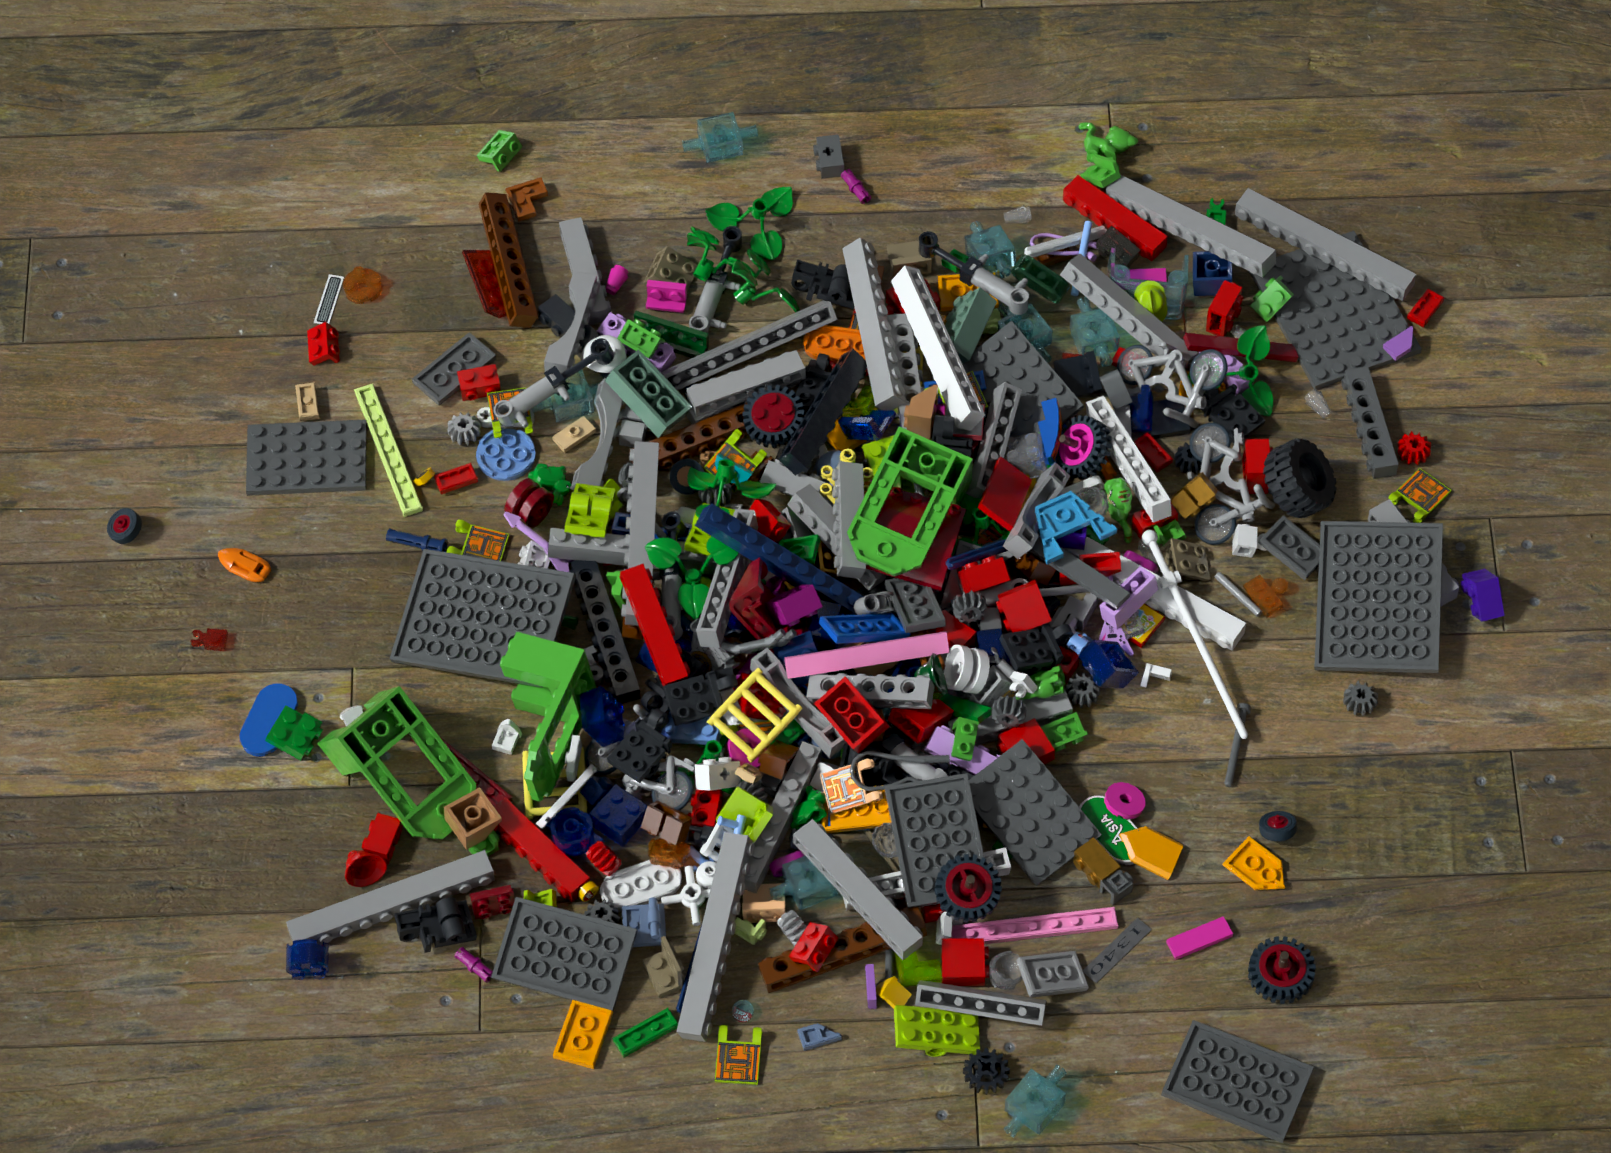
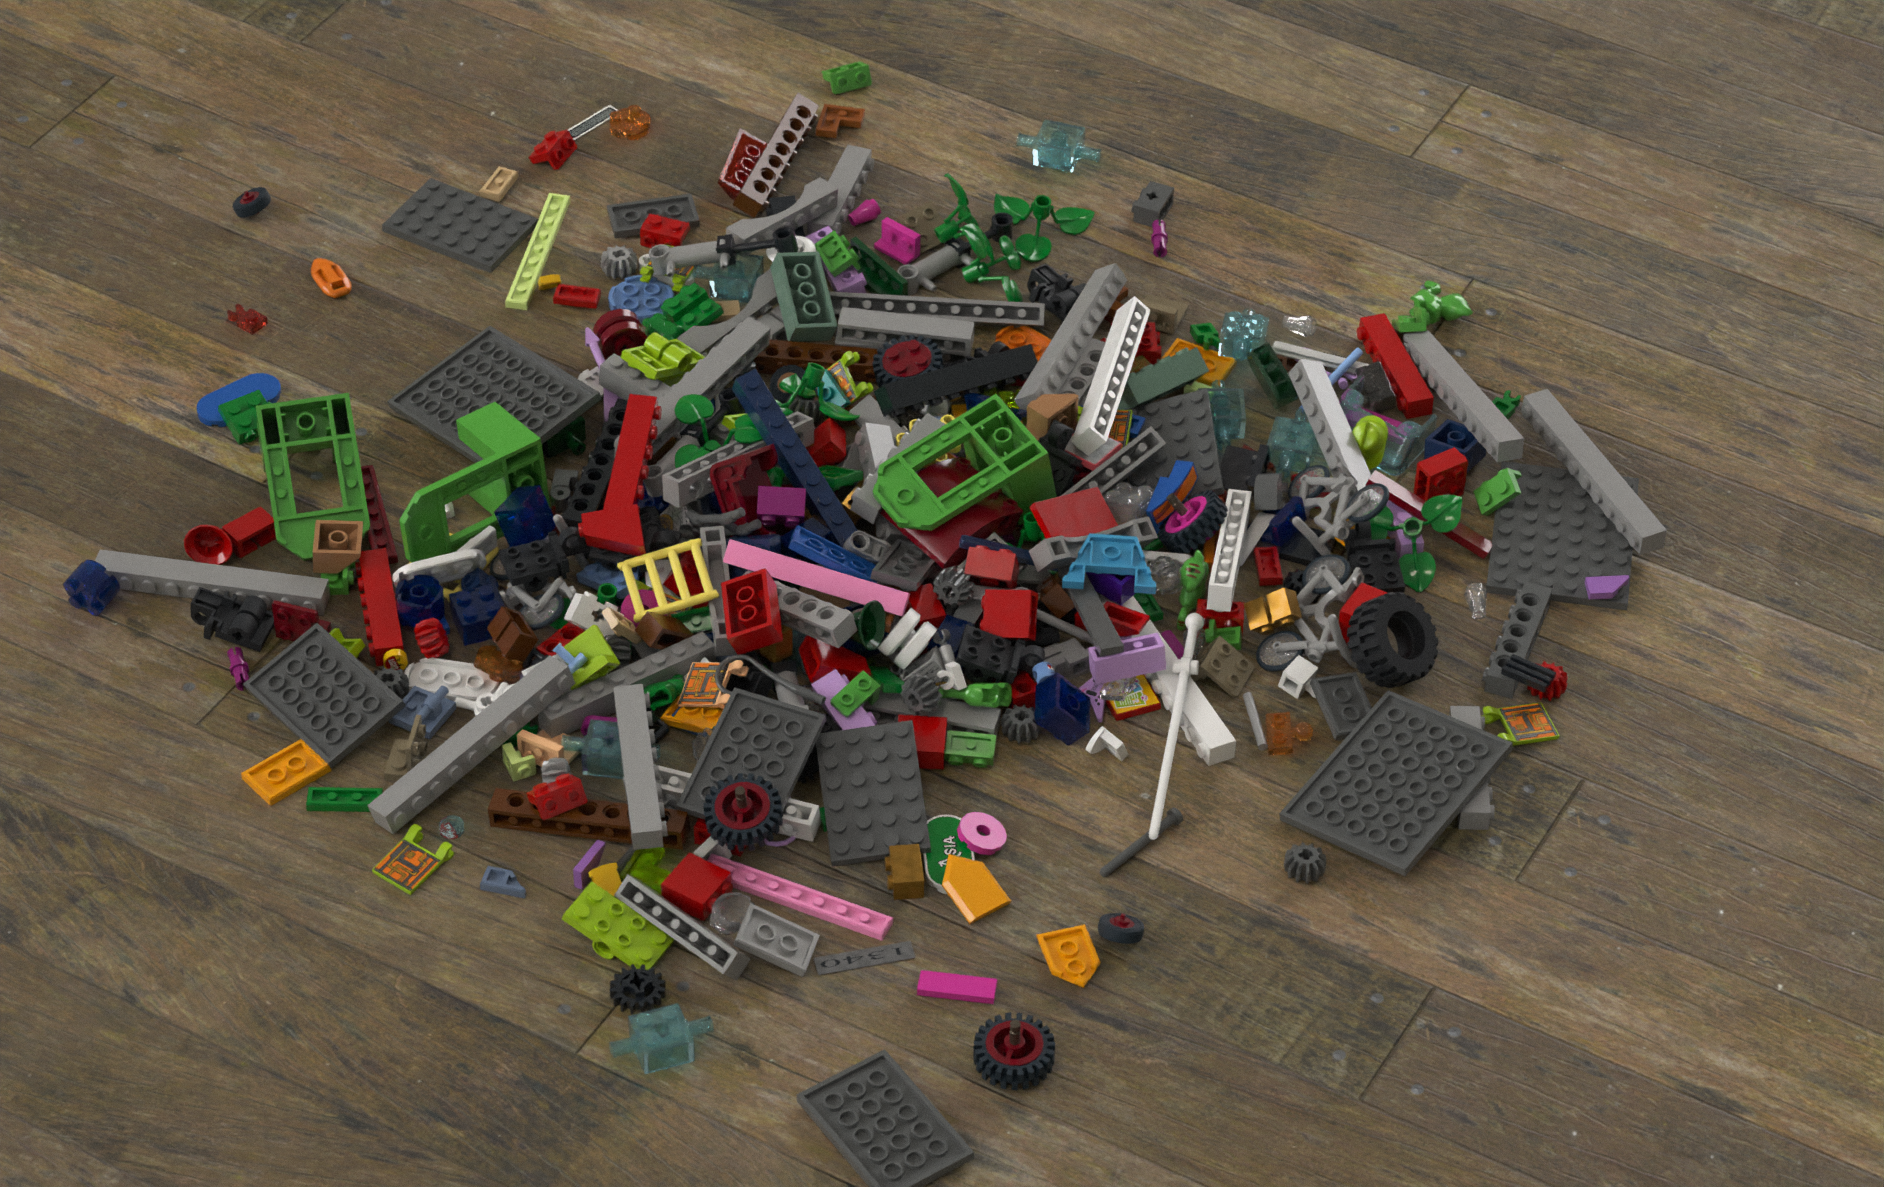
camera: 30 degrees right, 15 degrees down
(422, 542) = (488, 319): dark blue pin -> none
(480, 542) = (558, 351): flag -> none
(558, 446) = (691, 307): none -> green plate
(690, 695) = (614, 530): none -> red slope
(974, 274) = (1204, 337): piece -> none
(1118, 885) = (909, 900): dark grey window -> none
(1404, 450) = (1531, 673): none -> black tile
(1425, 308) = (1661, 572): red plate -> none
(1485, 594) = (1512, 833): dark purple brick -> none

